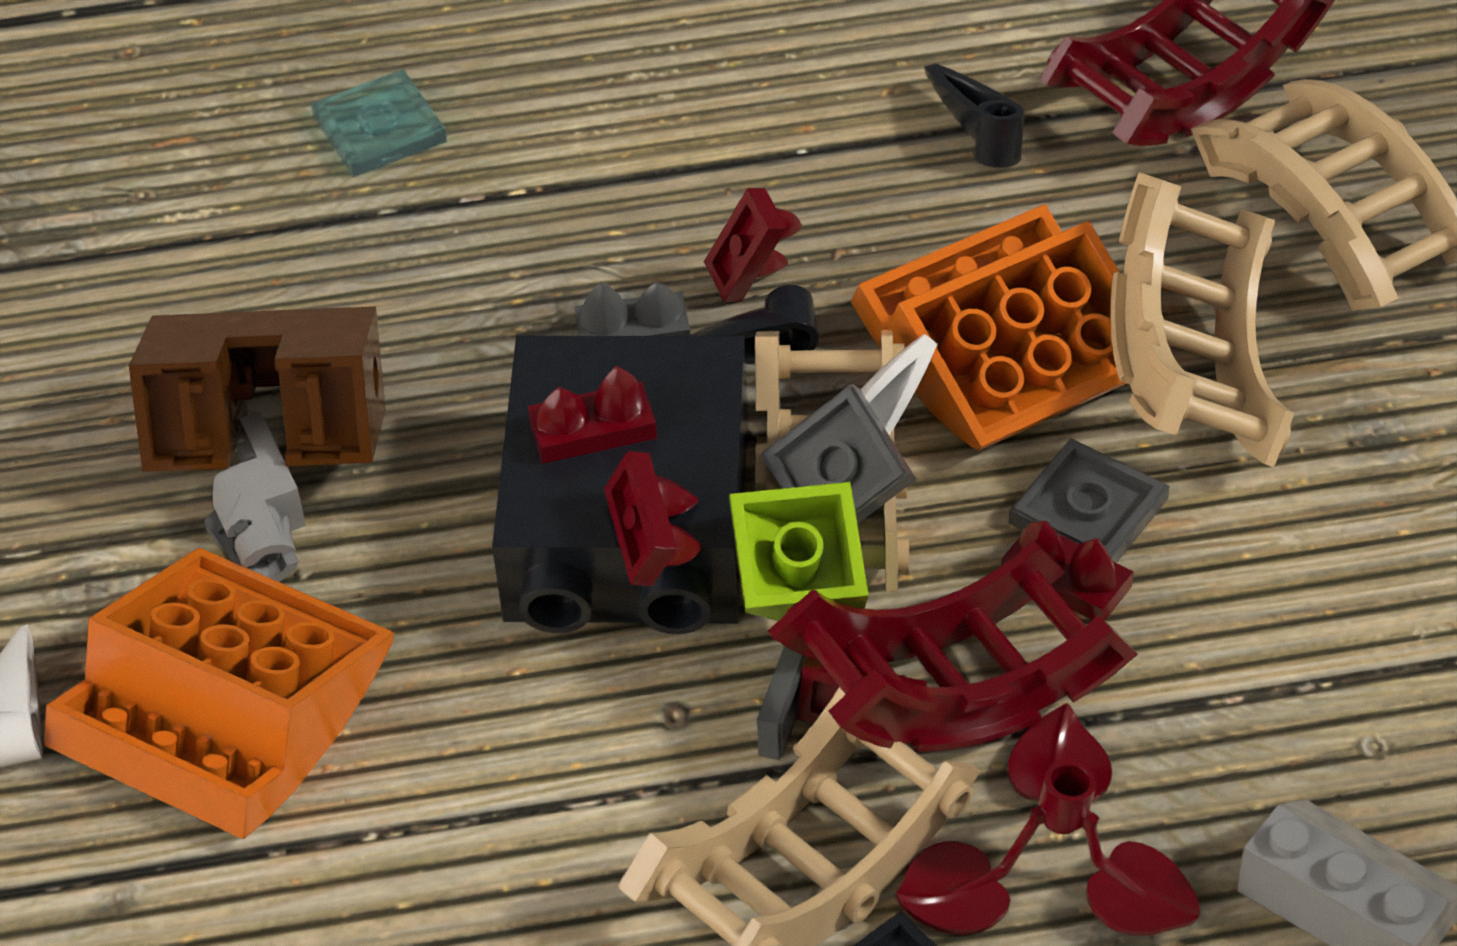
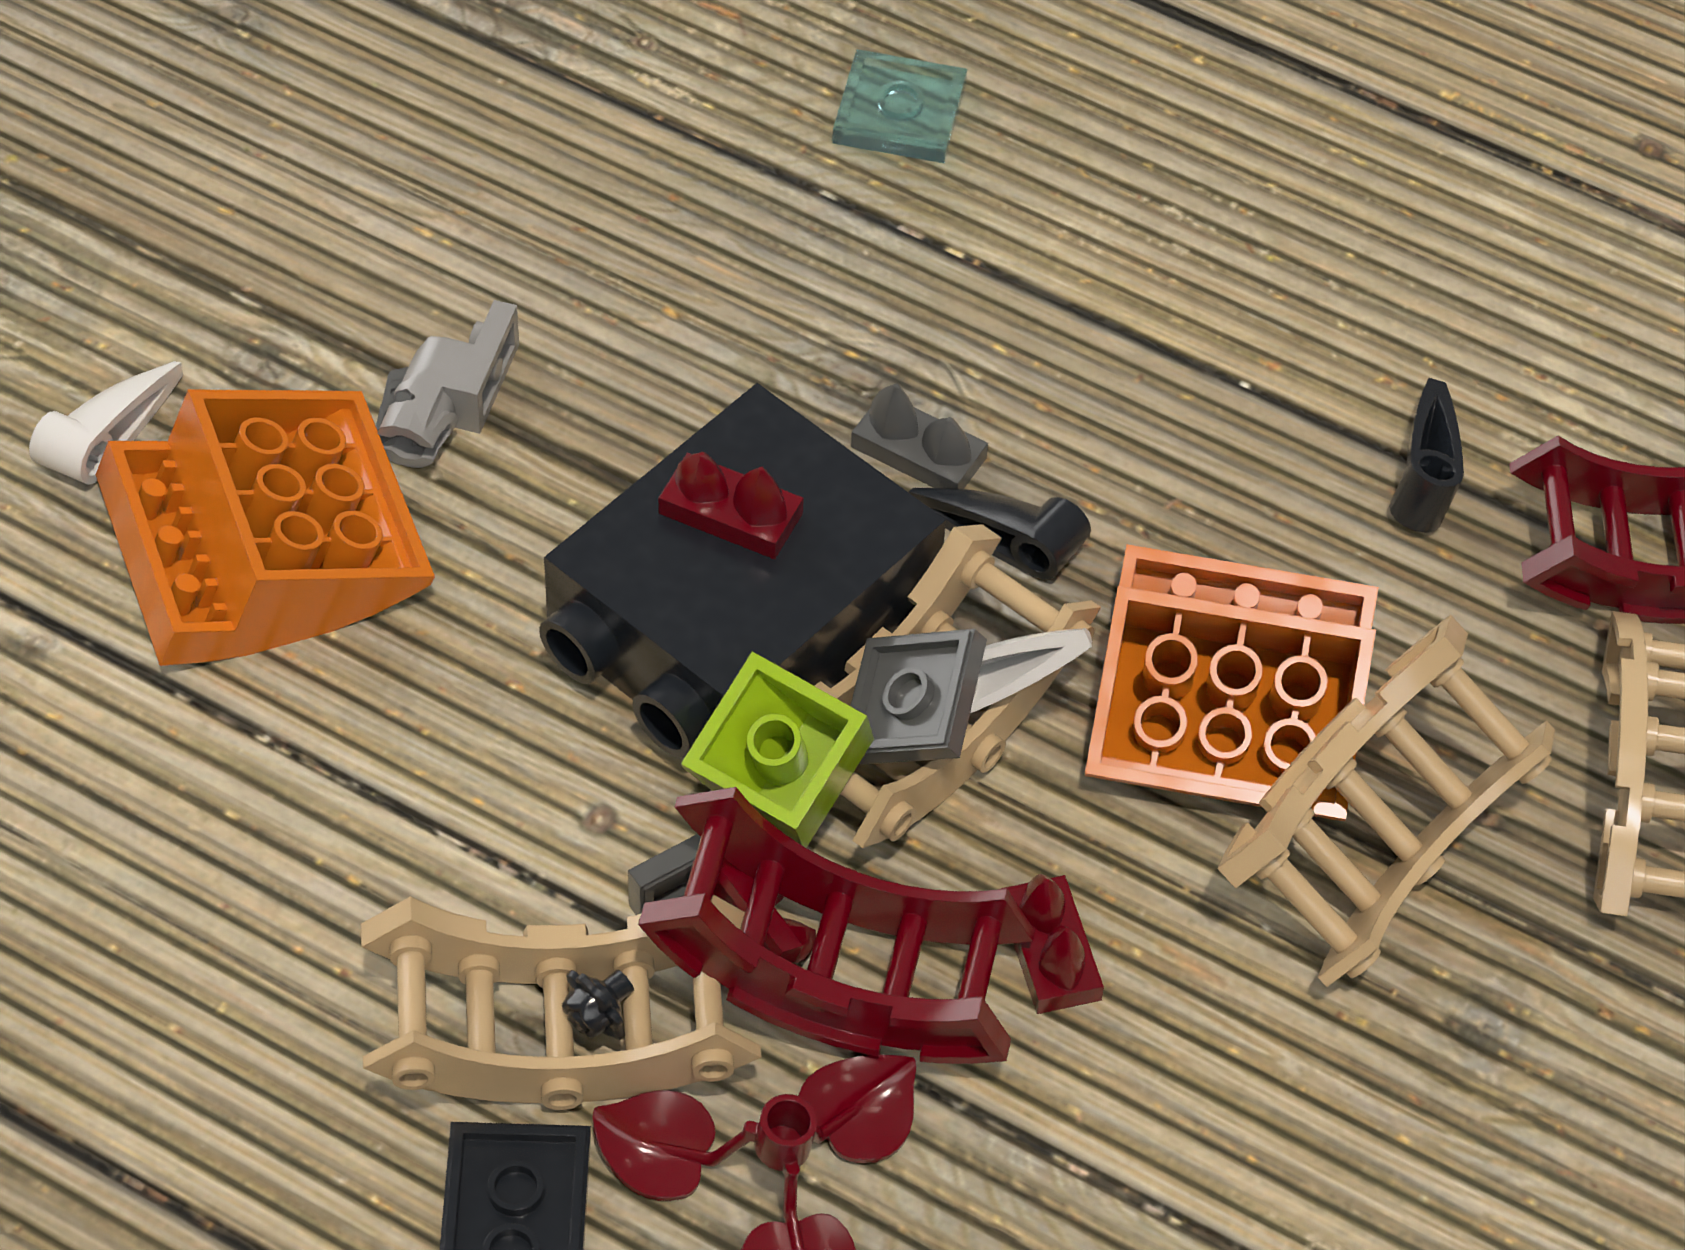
camera: 35 degrees right, 5 degrees up
(202, 367) = (579, 292): reddish brown piece -> none
(640, 513) = (687, 603): dark red tile -> none
(748, 244) = (1076, 441): dark red tile -> none
(829, 822) = (595, 1004): none -> black plant
(1091, 498) = (1141, 897): dark grey tile -> none

